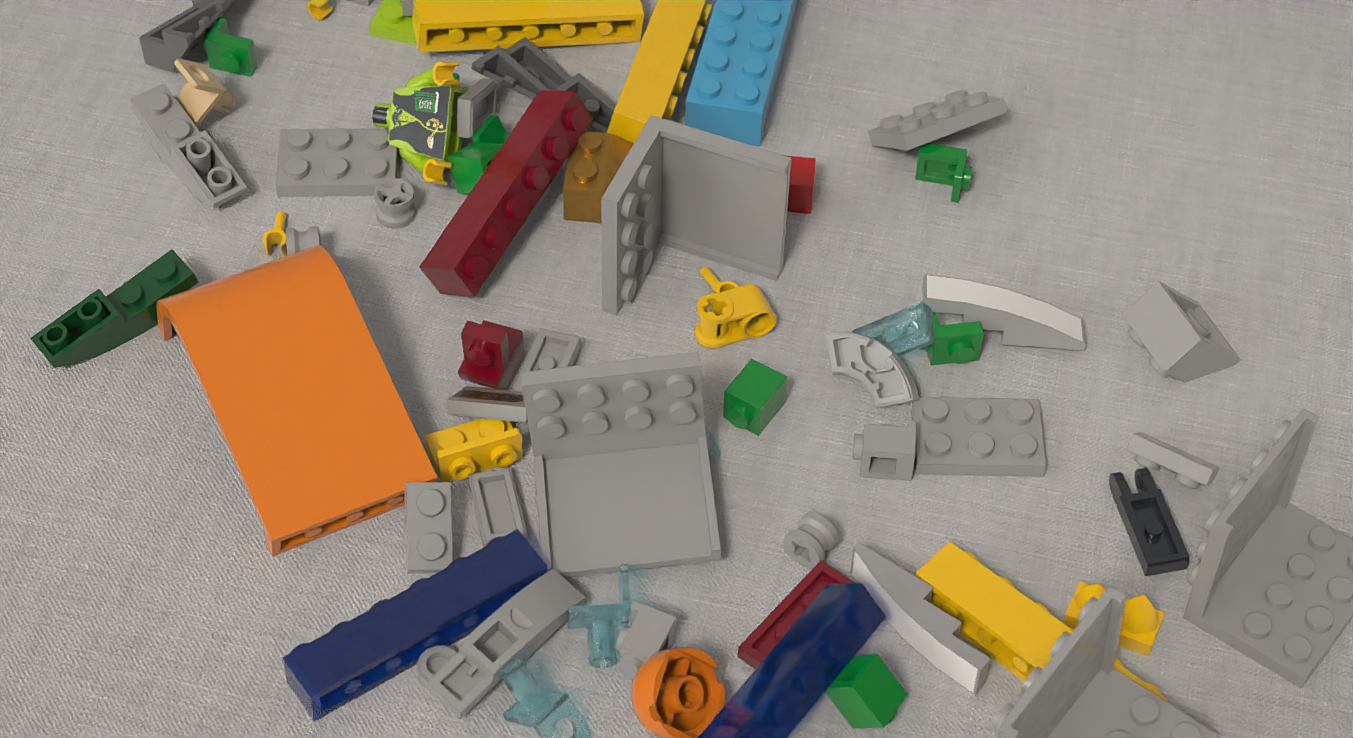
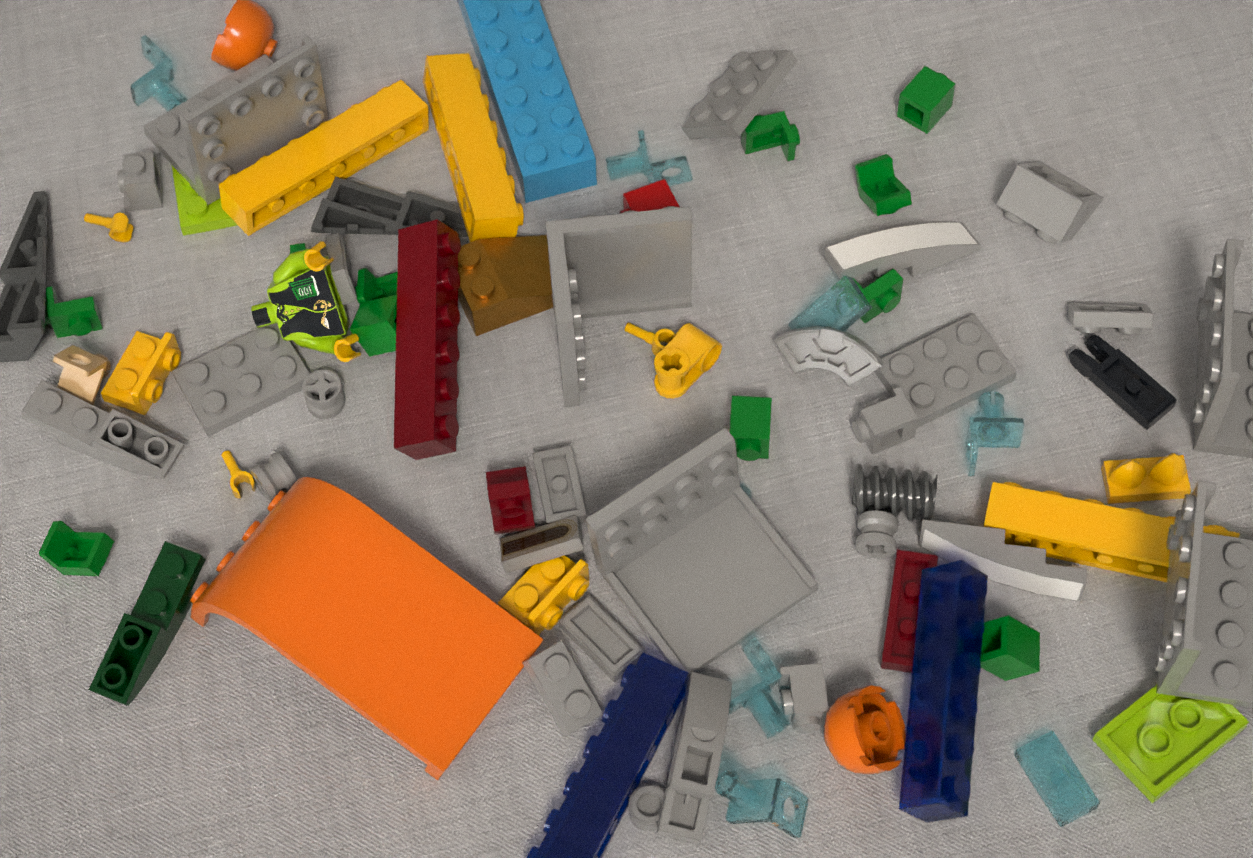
camera: 25 degrees left, 10 degrees up
(97, 228) = (75, 551): none -> green bracket
(257, 120) = (142, 372): none -> yellow bracket
(813, 143) = (641, 162): none -> clear light blue bracket
(850, 514) = (894, 493): none -> dark grey piece
(983, 503) = (991, 429): none -> clear light blue bracket
(1021, 252) = (880, 187): none -> green bracket
(1116, 201) = (926, 99): none -> green brick

